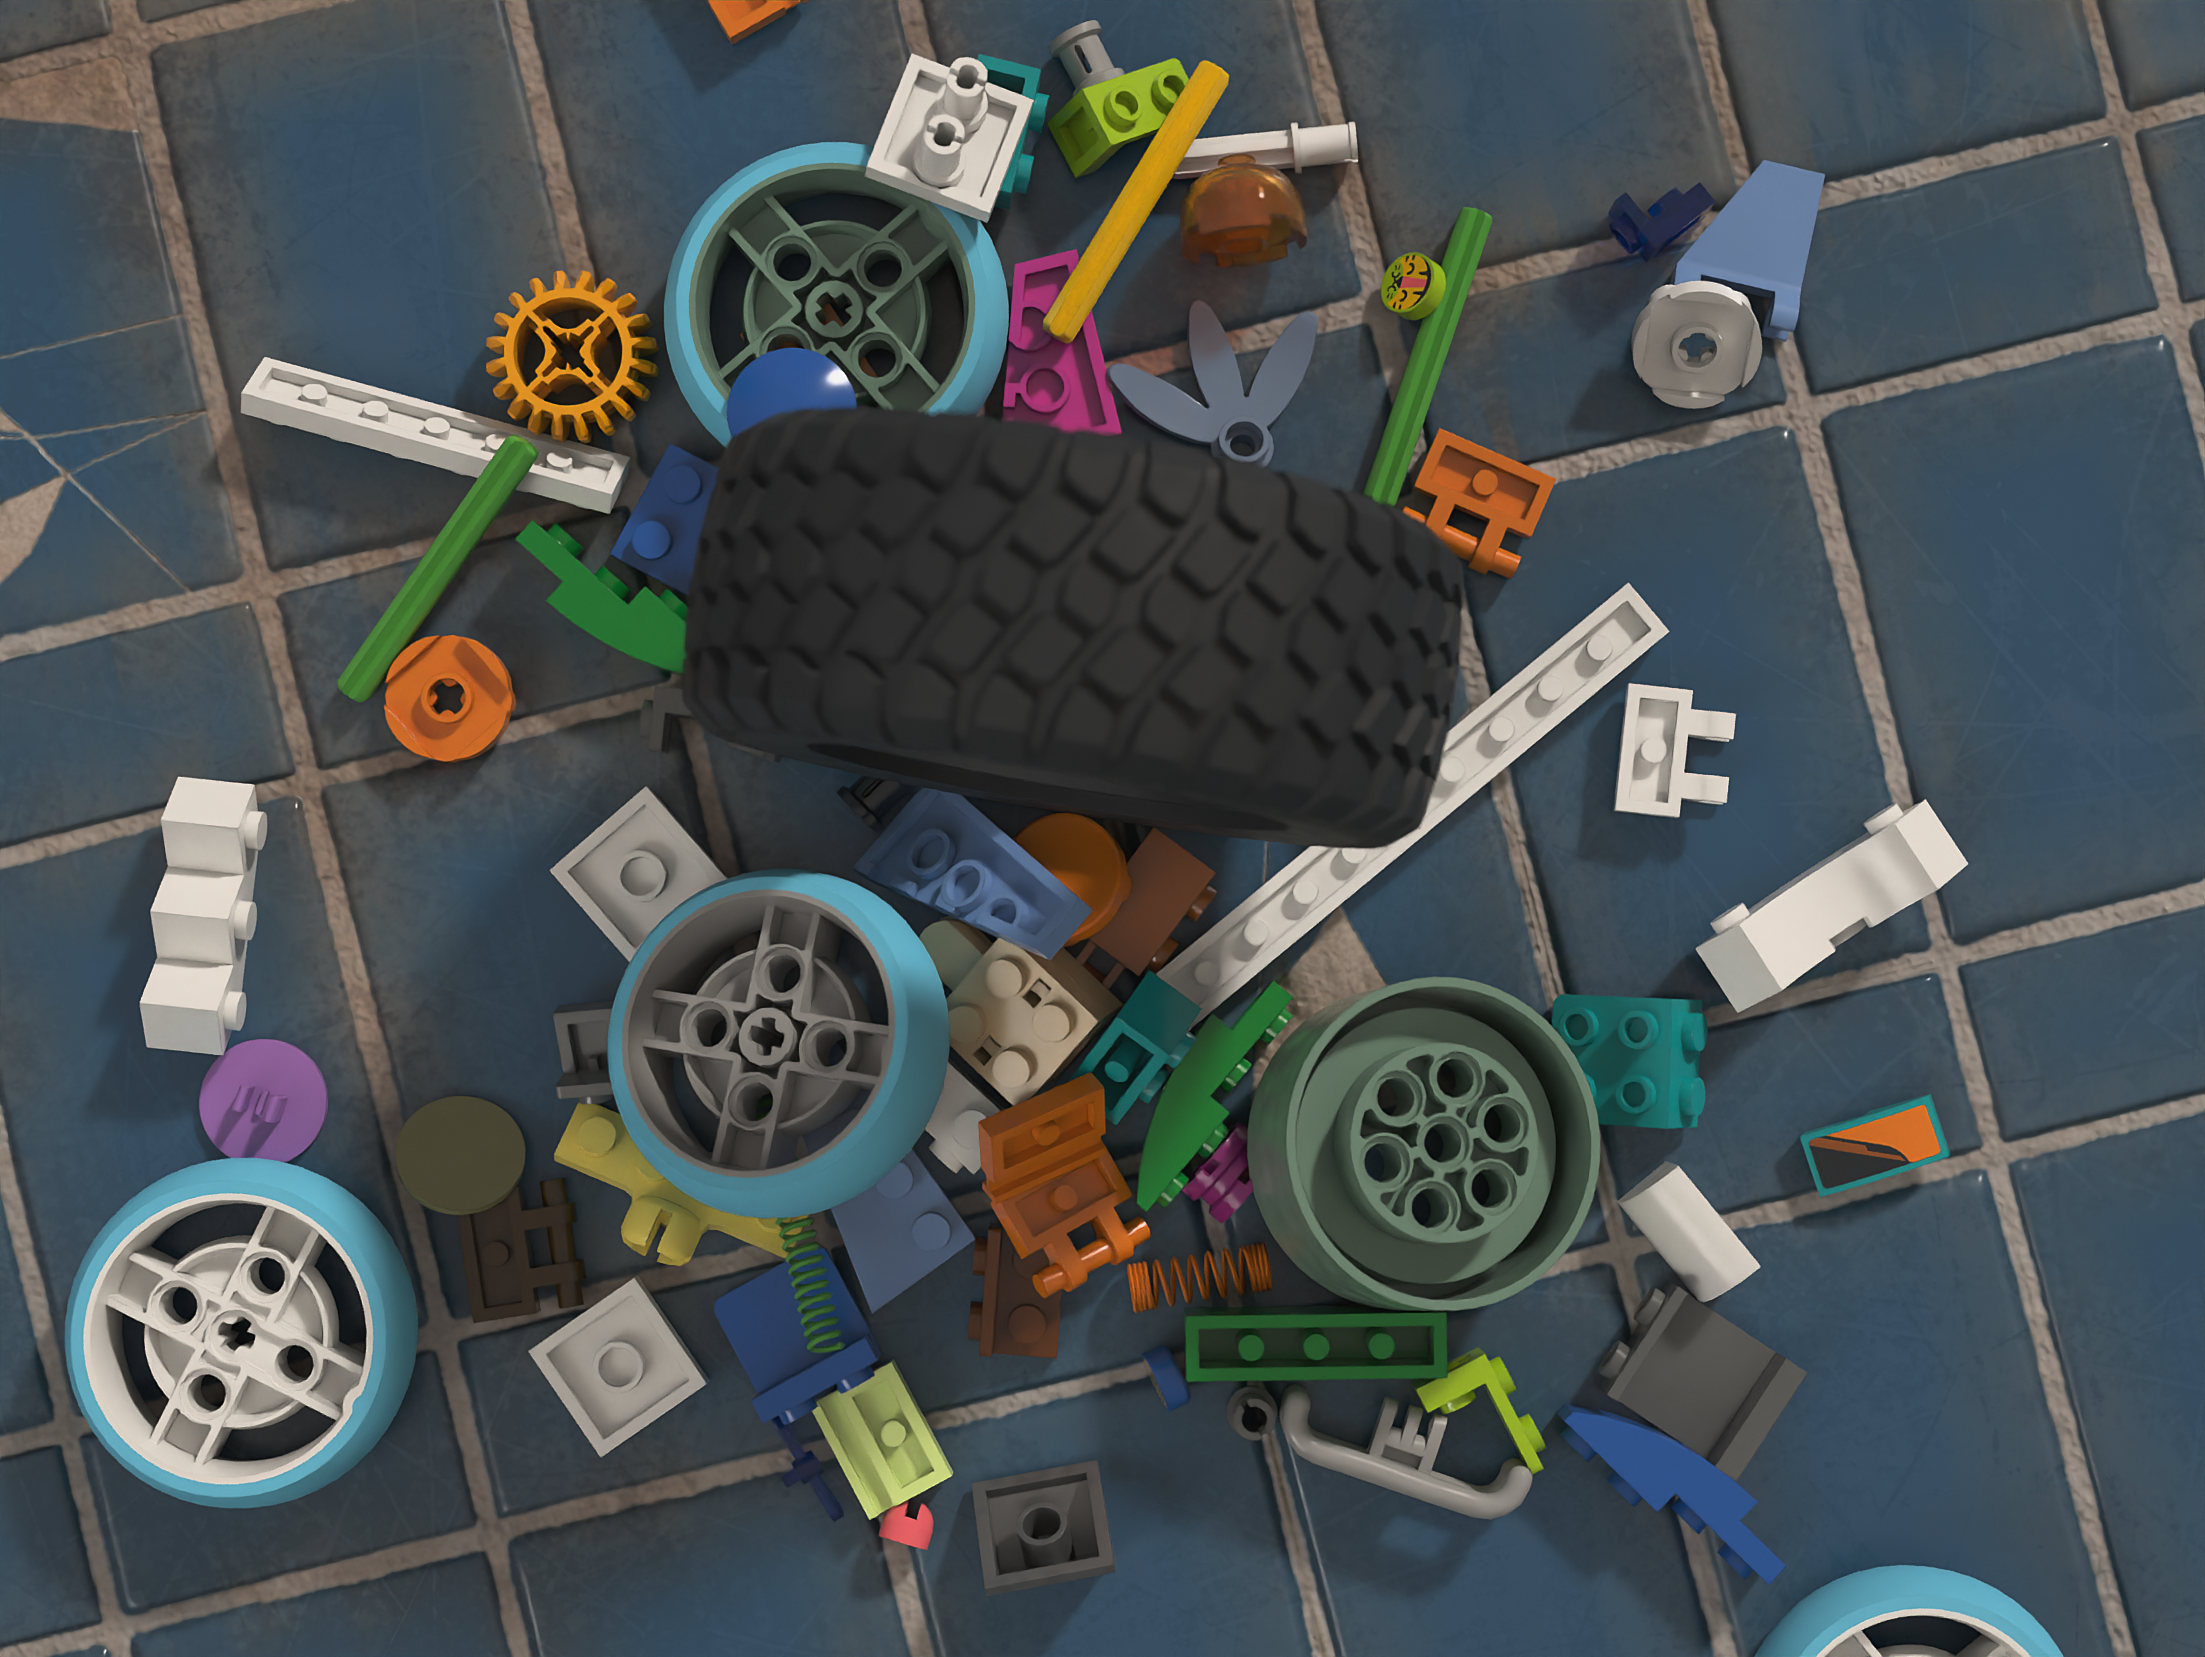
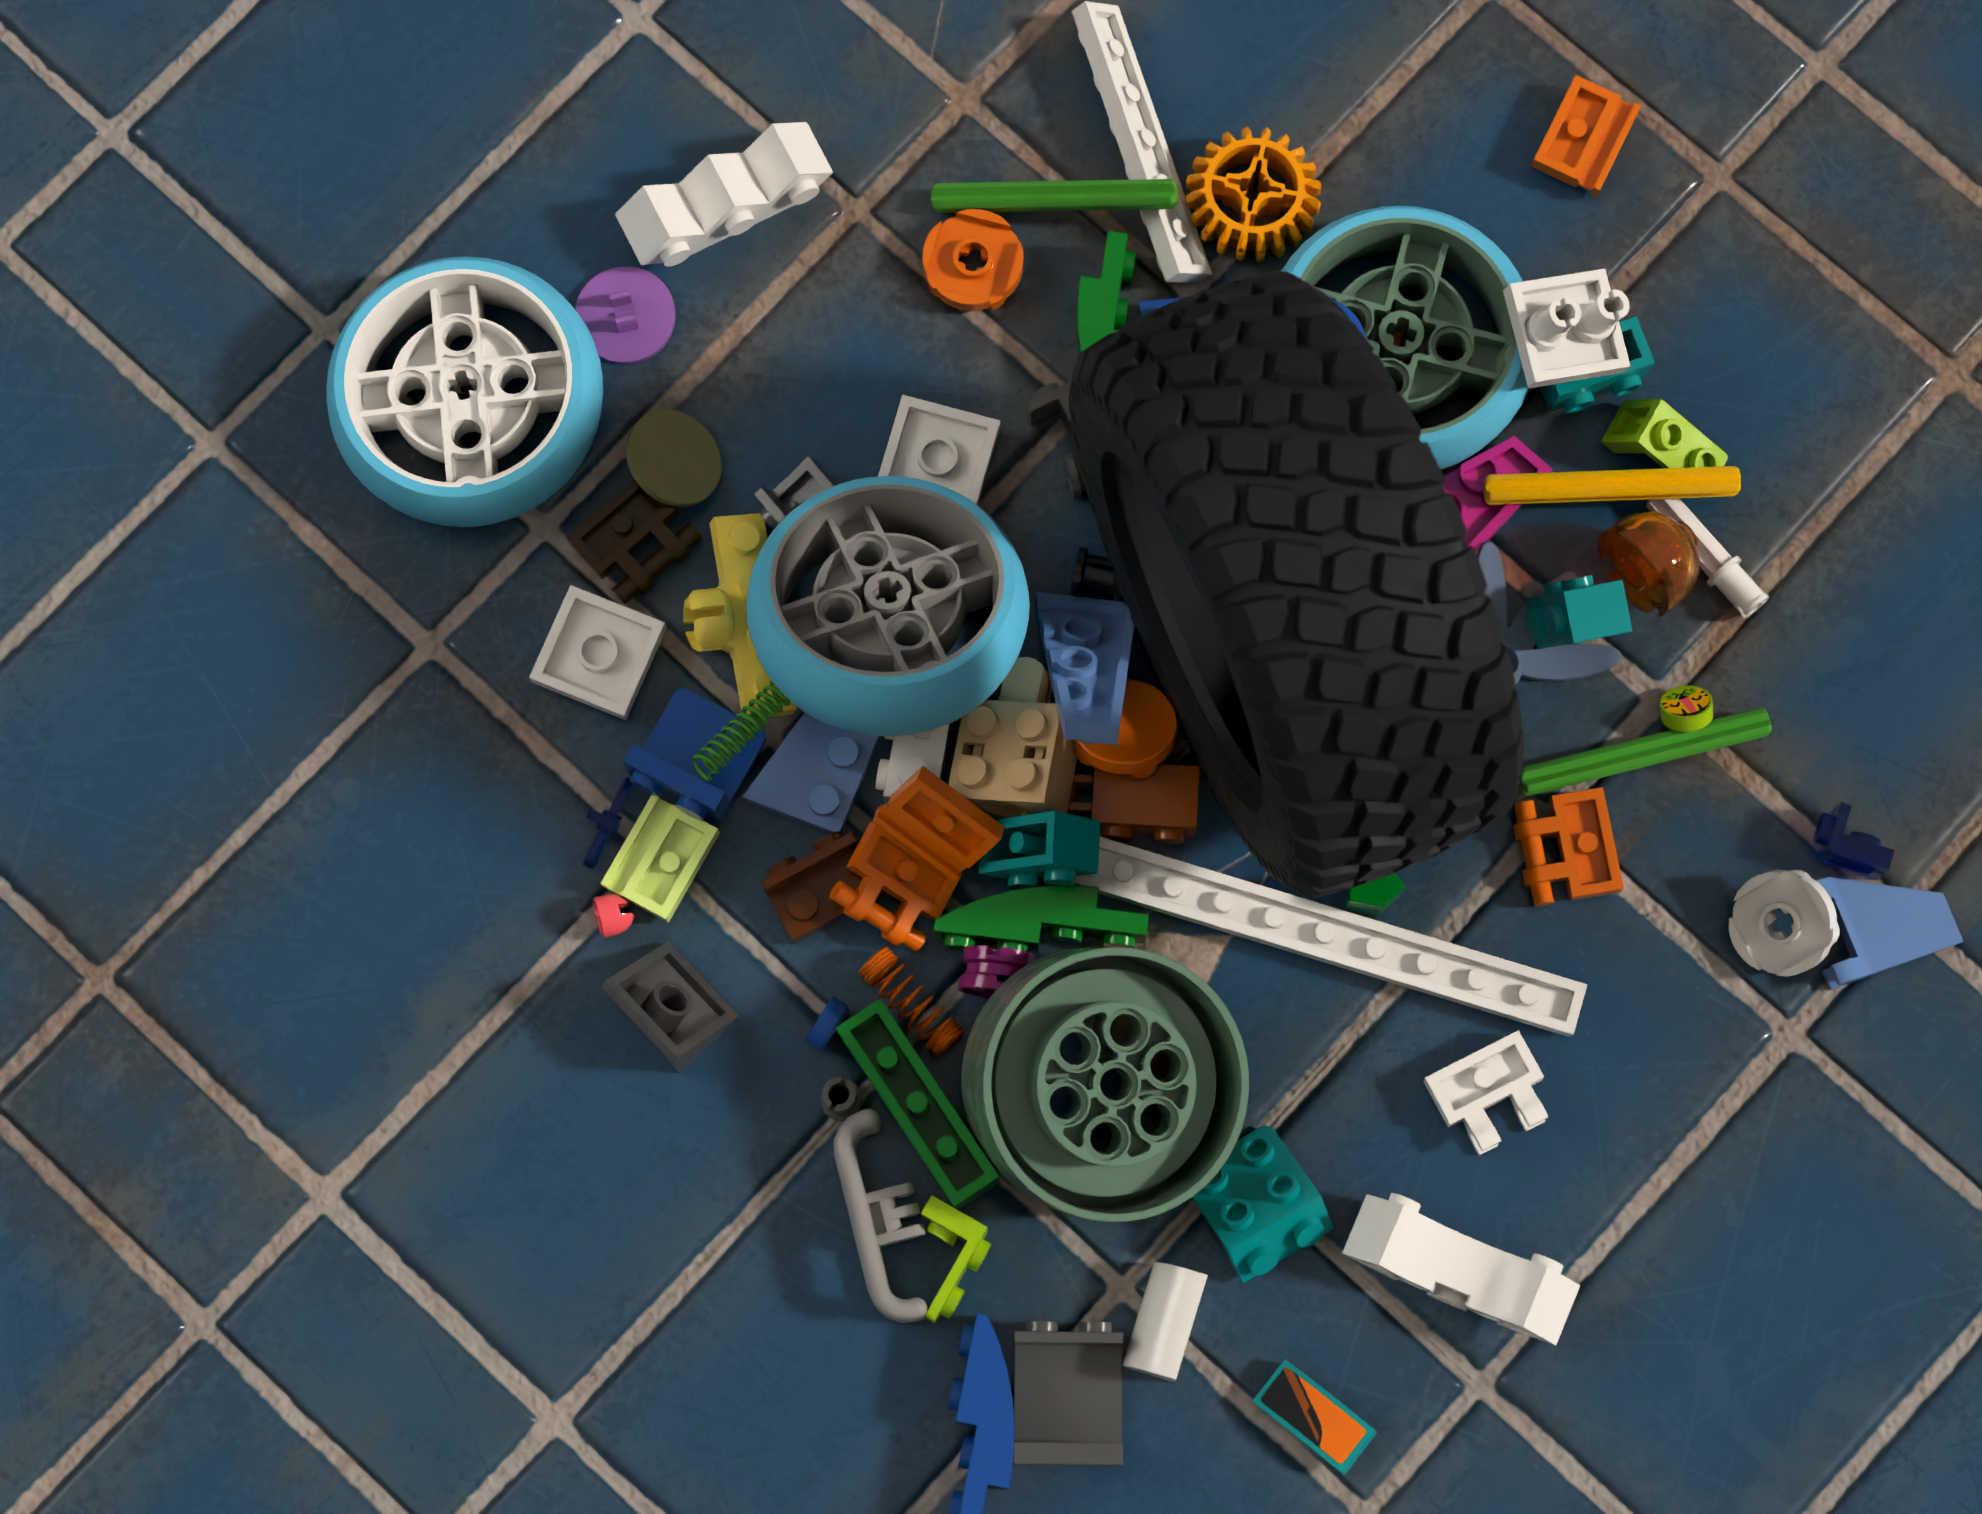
camera: 60 degrees right, 10 degrees down
(1079, 40) = (1687, 390): light grey bush -> none
(1251, 332) = (1577, 612): none -> teal brick

